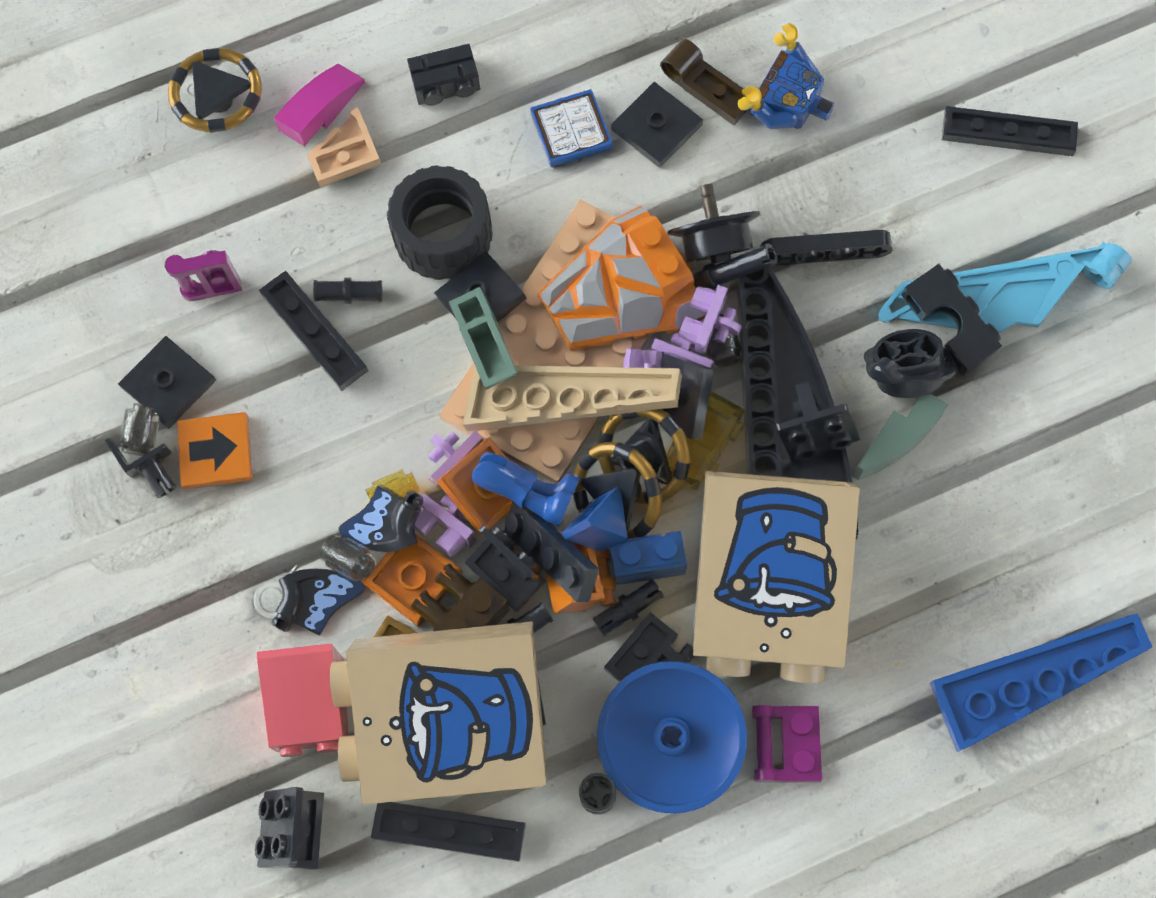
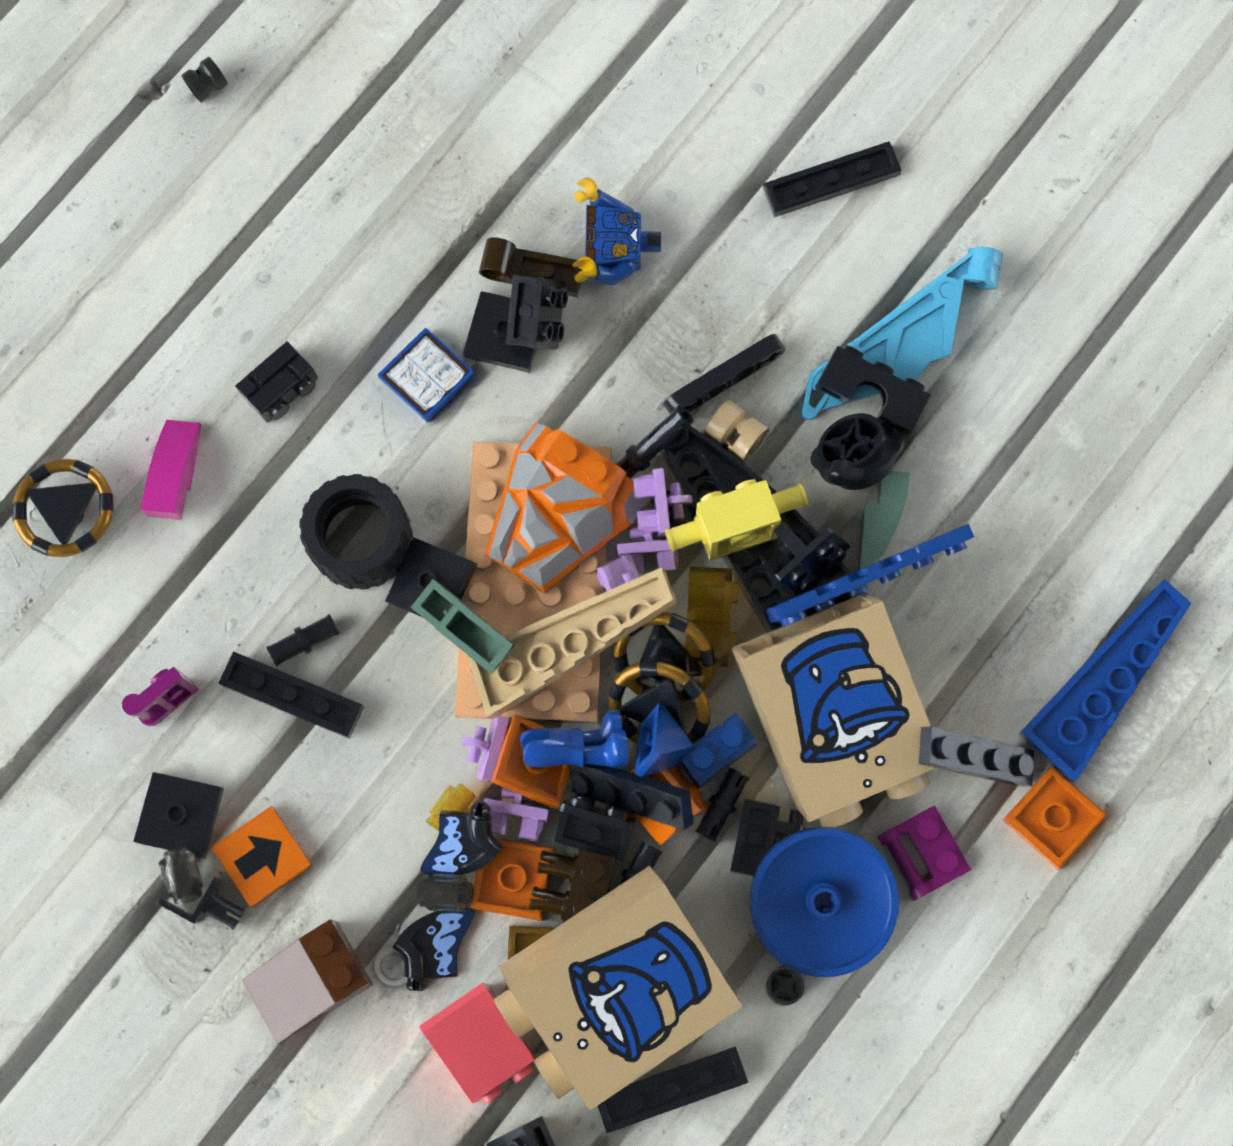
camera: 25 degrees left, 5 degrees up
(194, 571) = (307, 980): none -> slope
(344, 151) = (223, 505): light nougat wing -> none
(691, 116) = (536, 312): none -> black bracket
(693, 394) = (682, 577): black plate -> none
(716, 235) = (622, 418): black piece -> none
(769, 362) = (736, 518): none -> light yellow brick
(809, 294) = (729, 421): none -> tan wheel
(877, 678) = (976, 756): none -> plate
(917, 475) = (855, 582): none -> blue wing
(924, 775) = (1054, 817): none -> orange tile

